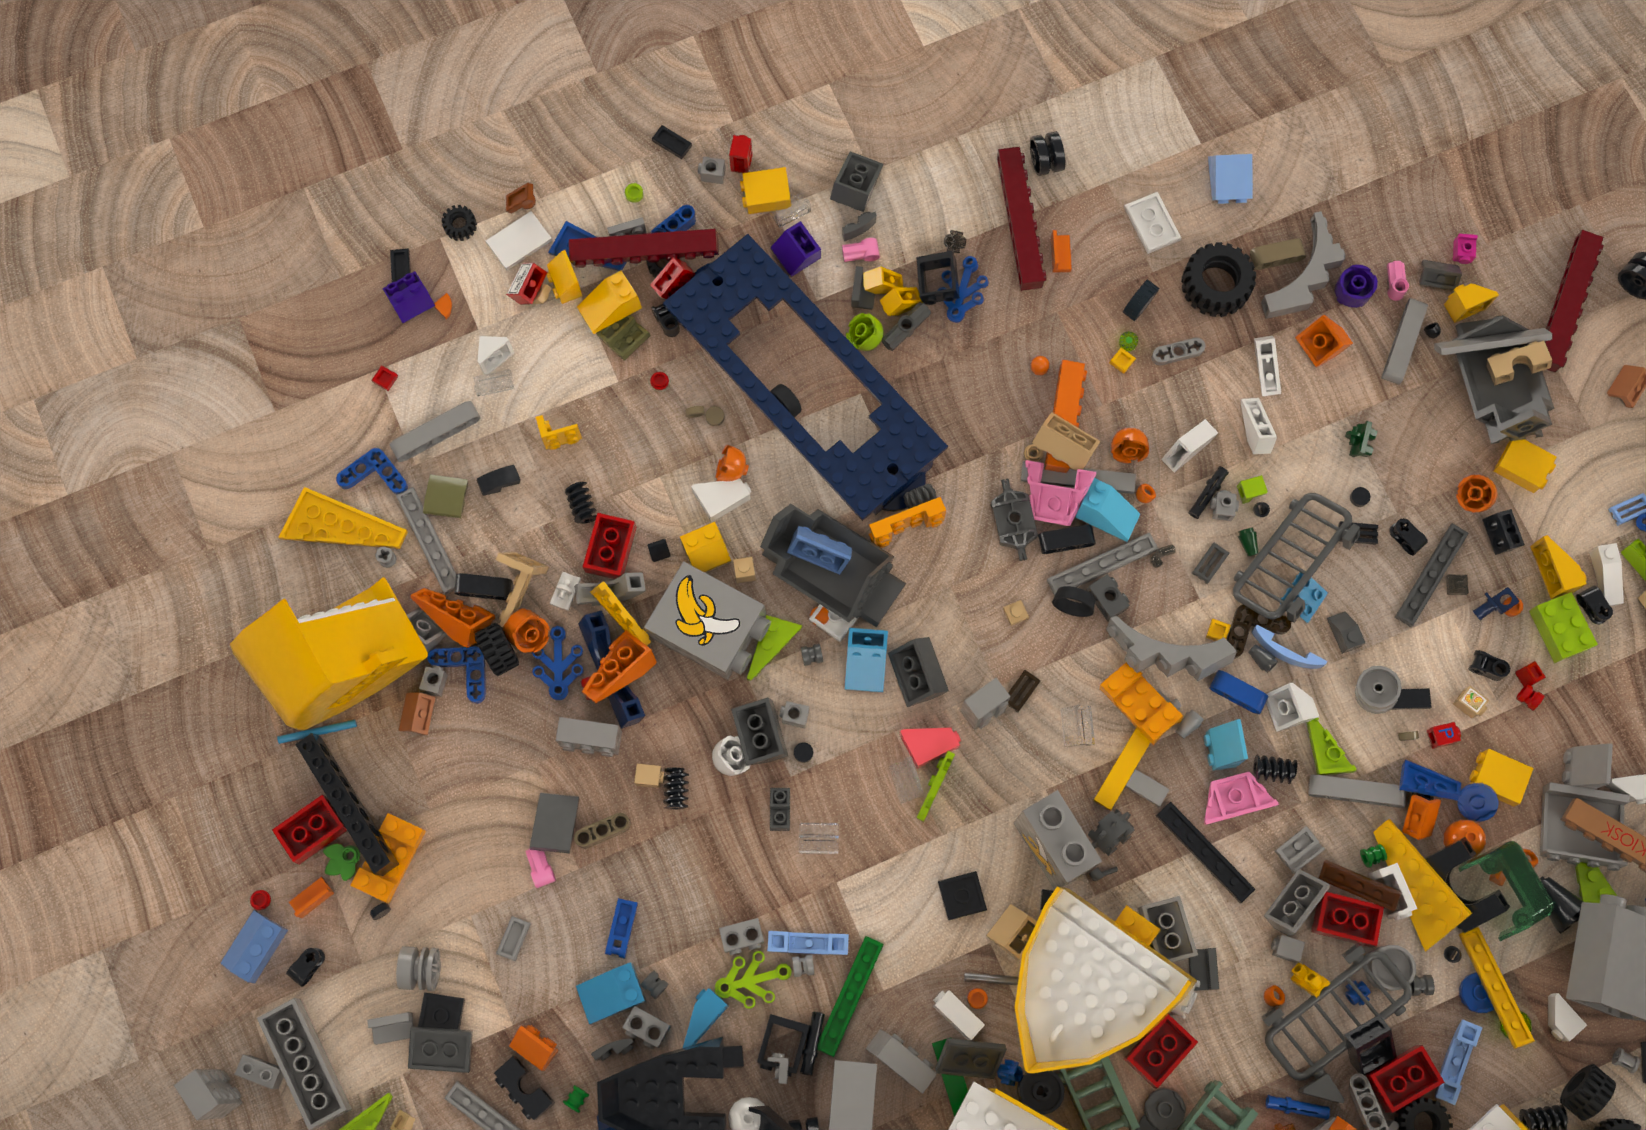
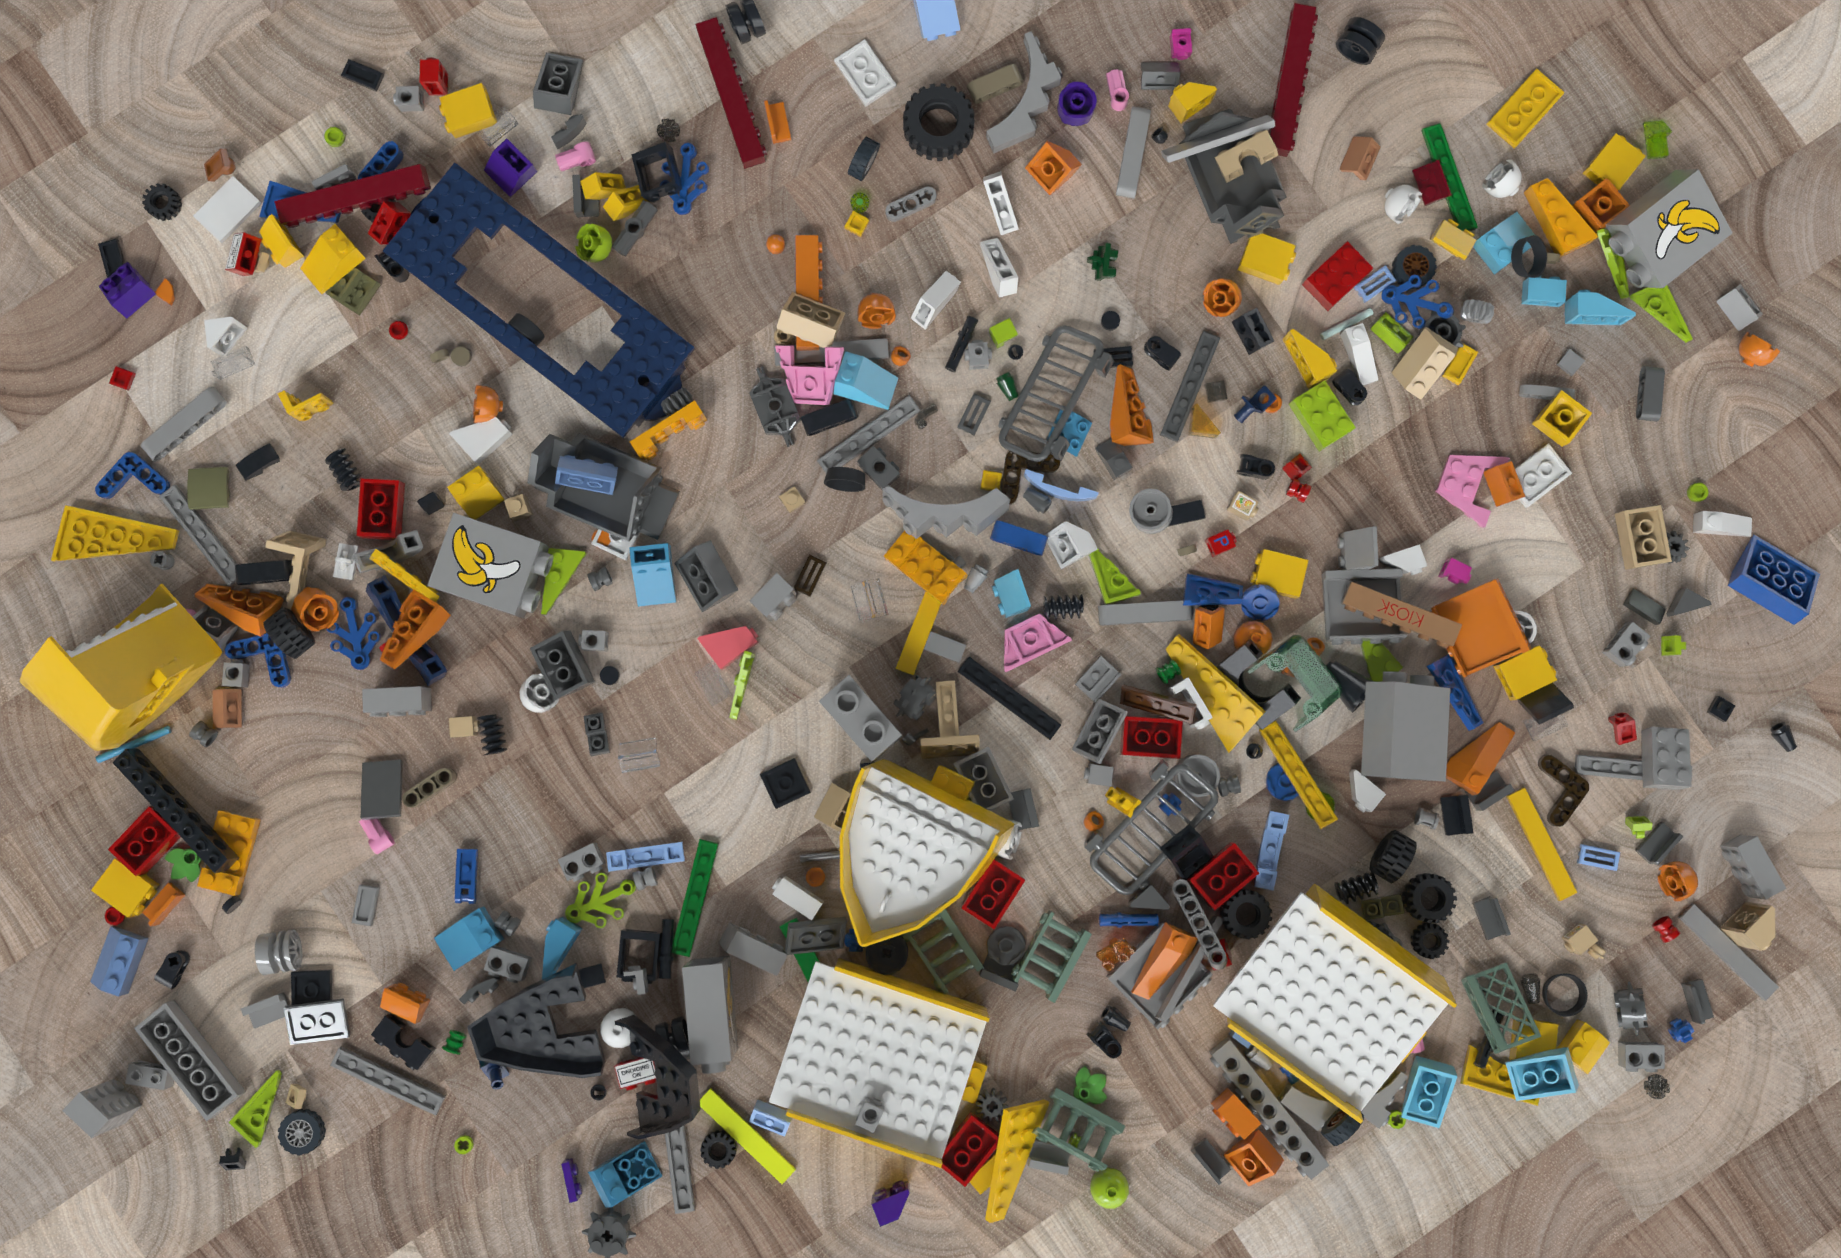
camera: 15 degrees left, 10 degrees up
(278, 874) = (124, 889): none -> yellow brick
(389, 734) = (203, 733): none -> dark grey wheel
(1140, 884) = (949, 742): none -> tan piece
(1365, 594) = (1128, 419): none -> orange wedge
(1439, 614) = (1201, 424): none -> clear yellow slope
(1594, 494) = (1337, 276): none -> red brick
(1597, 542) = (1347, 323): none -> light aqua bar

